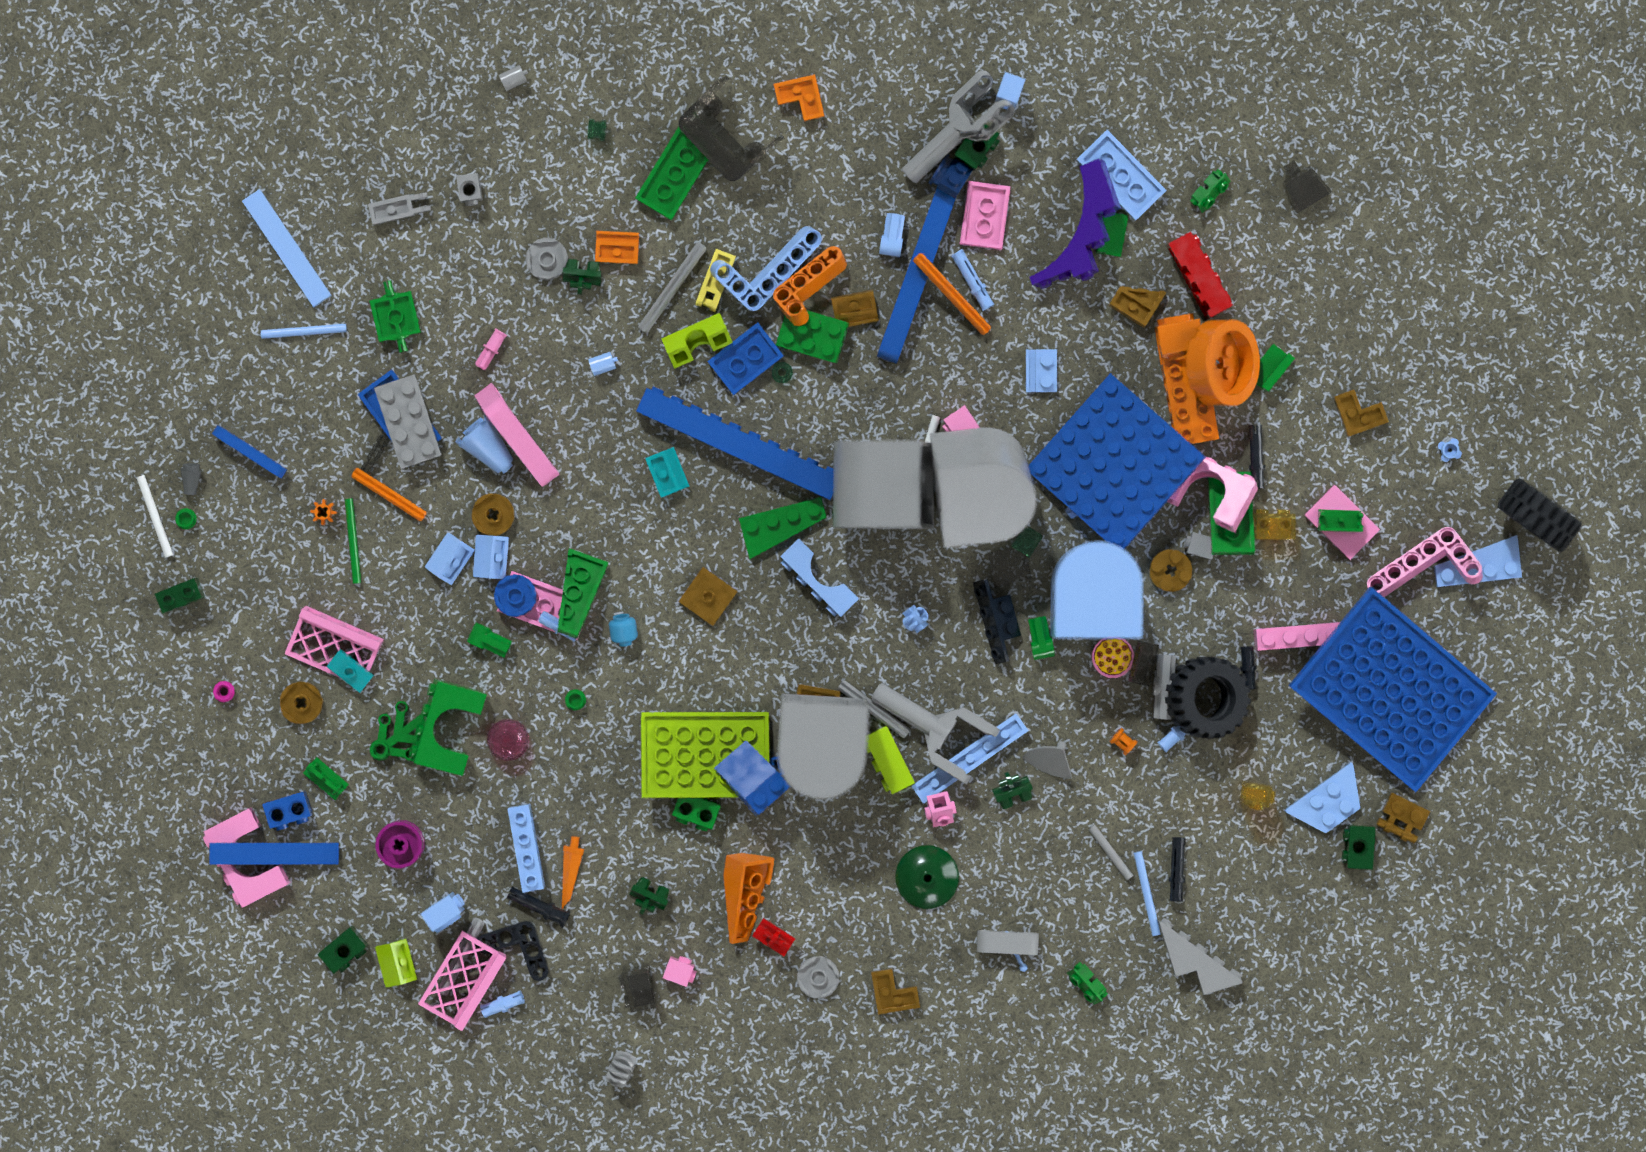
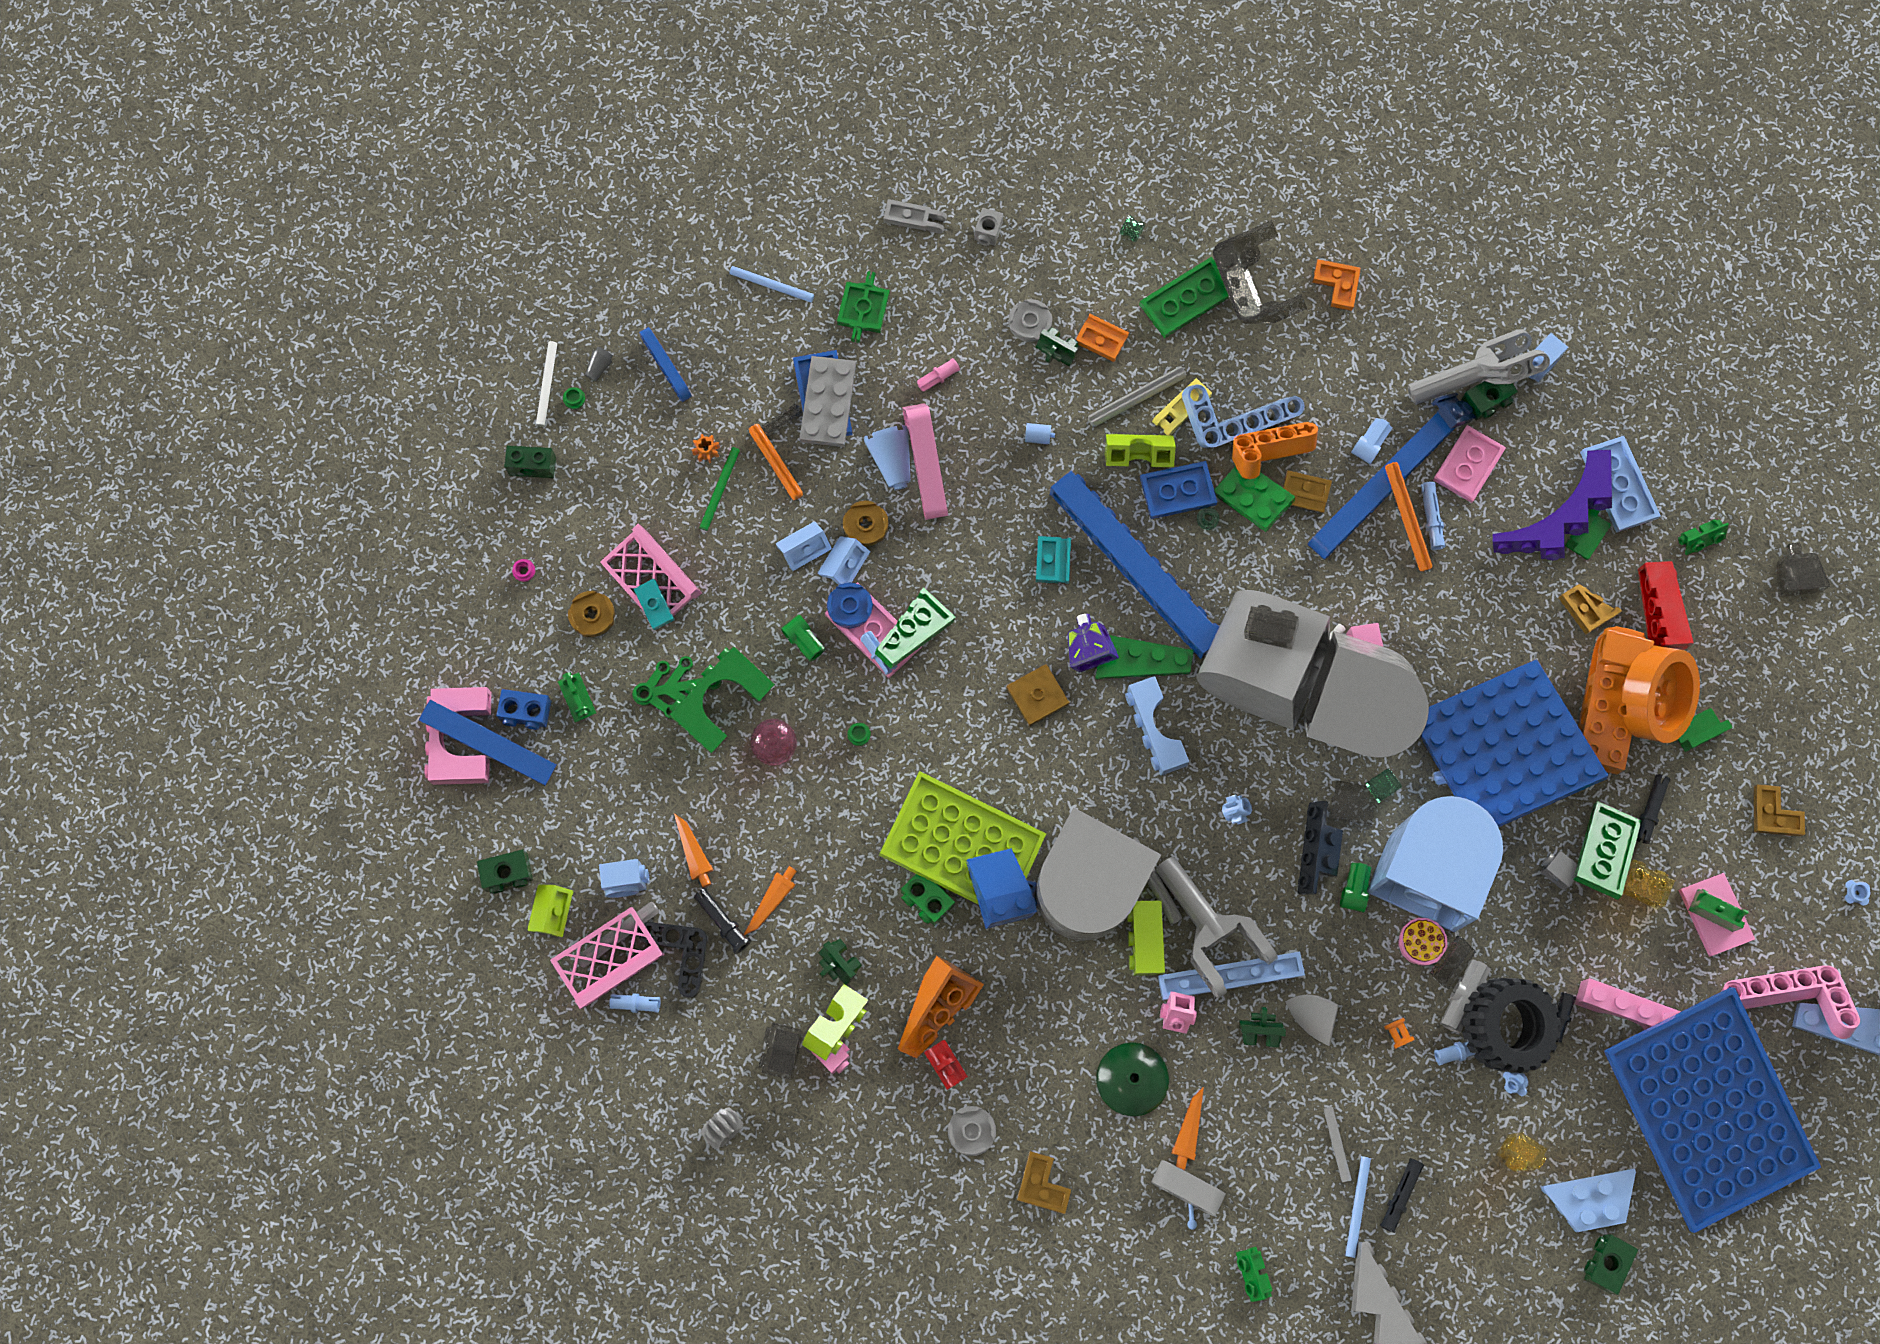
camera: 25 degrees right, 15 degrees down
(286, 248) = (793, 207): light blue tile -> none
(391, 853) = (628, 794): magenta wheel -> none
(492, 865) = (696, 860): none -> orange bar
(513, 77) = (1075, 153): light grey piece -> none
(526, 848) = (738, 854): light blue brick -> none
(623, 629) = (939, 687): dark azure head -> none
(669, 963) = (825, 1035): none -> arch
(732, 535) = (1089, 645): none -> dark purple torso
(876, 473) = (1271, 627): none -> clear smoke brick
(990, 902) = (1187, 1139): none -> orange bar
(1041, 370) = (1465, 630): light blue plate -> none
(1159, 566) = (1527, 872): pearl gold plate -> none
(1233, 739) = (1515, 1083): none -> light blue plate
(1238, 493) = (1627, 825): bright pink arch -> none
(1405, 811) = (1674, 1251): pearl gold plate -> none

